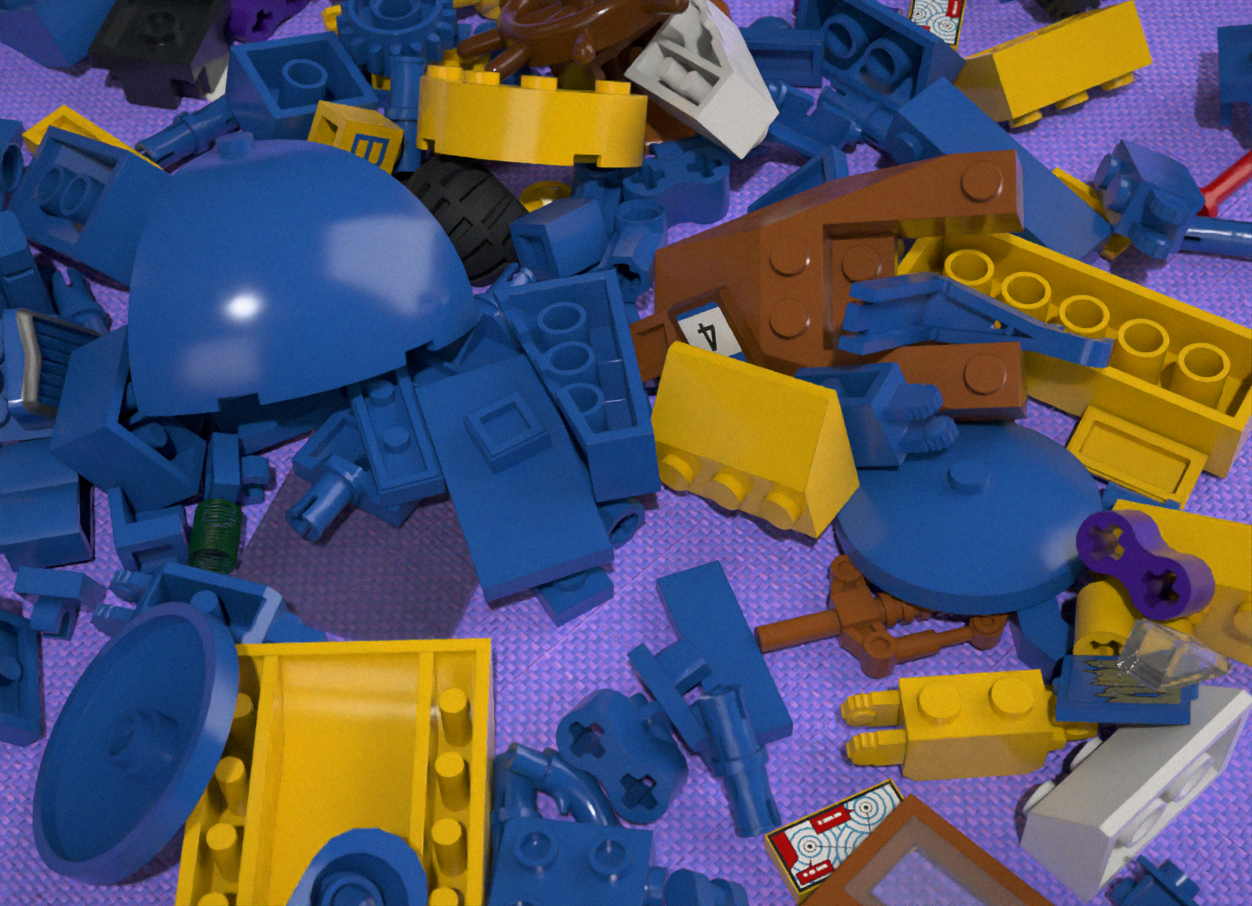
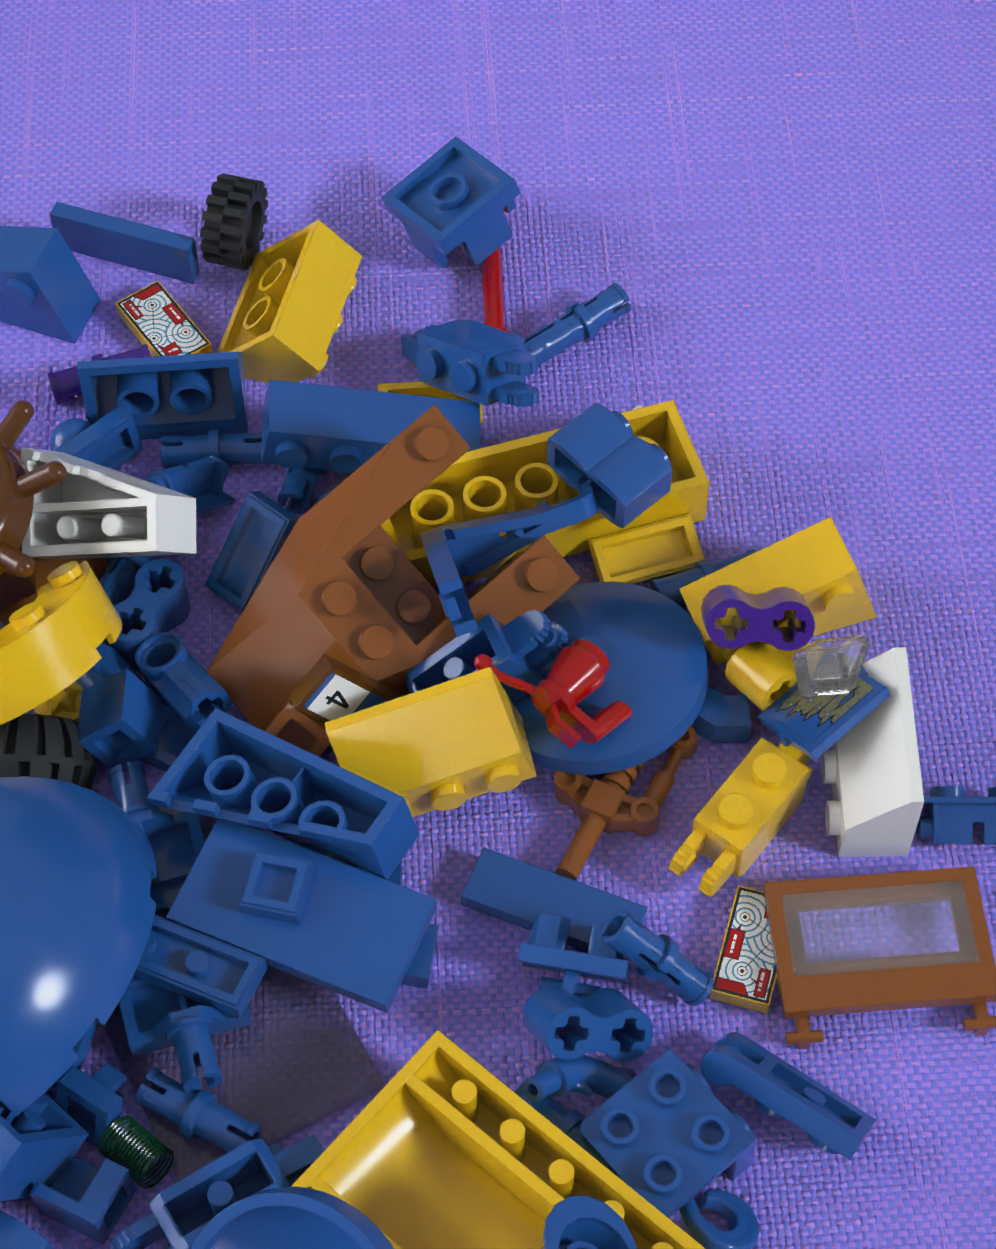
camera: 50 degrees left, 5 degrees up
(283, 550) = (196, 1112): none -> blue pin
(914, 474) = (573, 677): none -> red piece
(1157, 341) = (618, 466): none -> blue brick

